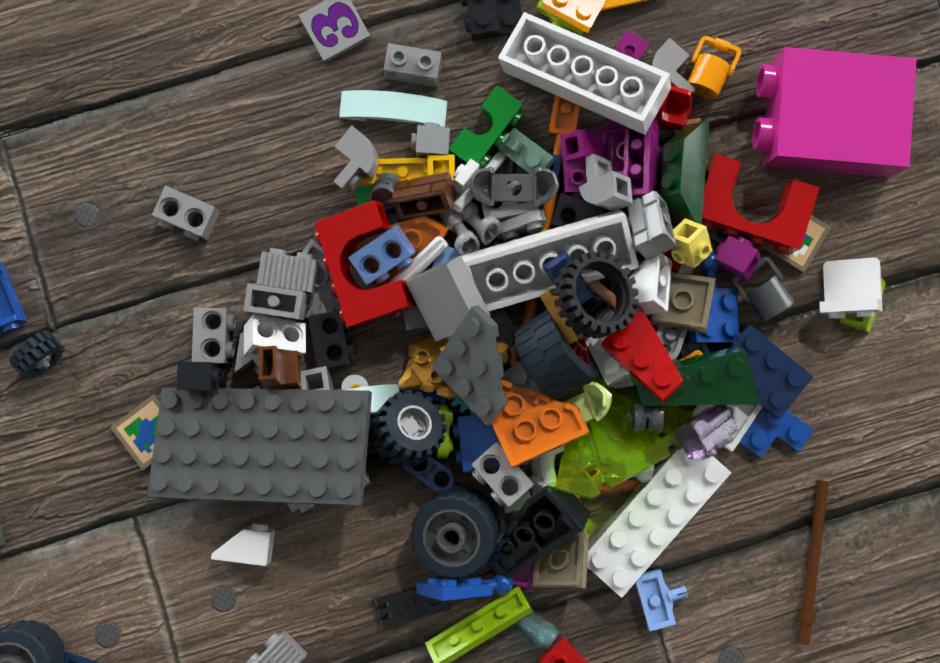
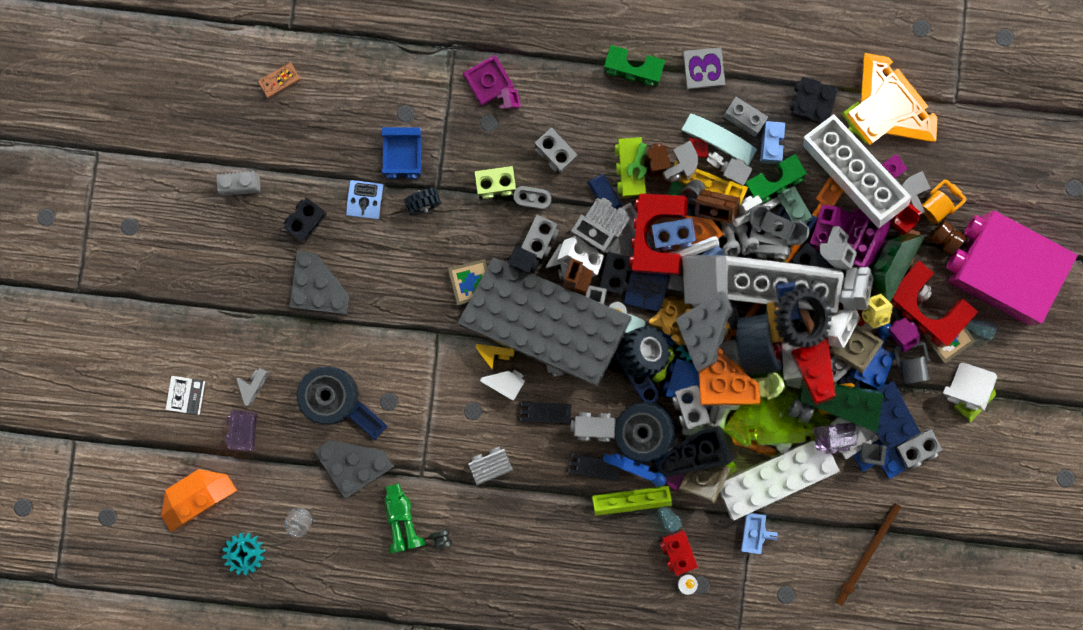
camera: 30 degrees right, 0 degrees up
(61, 160) = (487, 80): none -> magenta tile
(98, 171) = (511, 99): none -> magenta tile
(122, 281) = (495, 177): none -> yellowish green brick
(182, 287) = (533, 195): none -> light grey plate
(211, 515) = (489, 353): none -> yellow slope
(264, 62) = (648, 73): none -> green arch
(269, 236) = (602, 189): none -> dark blue tile
(292, 193) = (627, 151): none -> lime brick
(297, 182) = (638, 162): none -> bright green bar
(319, 559) = (546, 412): none -> black hinge
(320, 168) = (657, 159): none -> reddish brown brick
(372, 130) = (700, 146): none -> red tile
(378, 557) = (586, 426): none -> light grey brick
(381, 344) = (646, 290): none -> dark blue tile
(398, 137) = (715, 159): none -> white plate
(458, 74) = (772, 134): none -> light blue brick
(738, 109) = (947, 237): none -> reddish brown wheel
(740, 193) = (924, 293): none -> white plate
(764, 431) = (873, 453): none -> dark grey panel
(823, 403) = (916, 445): none -> light grey brick
(834, 207) = (983, 329): none -> clear light blue cone

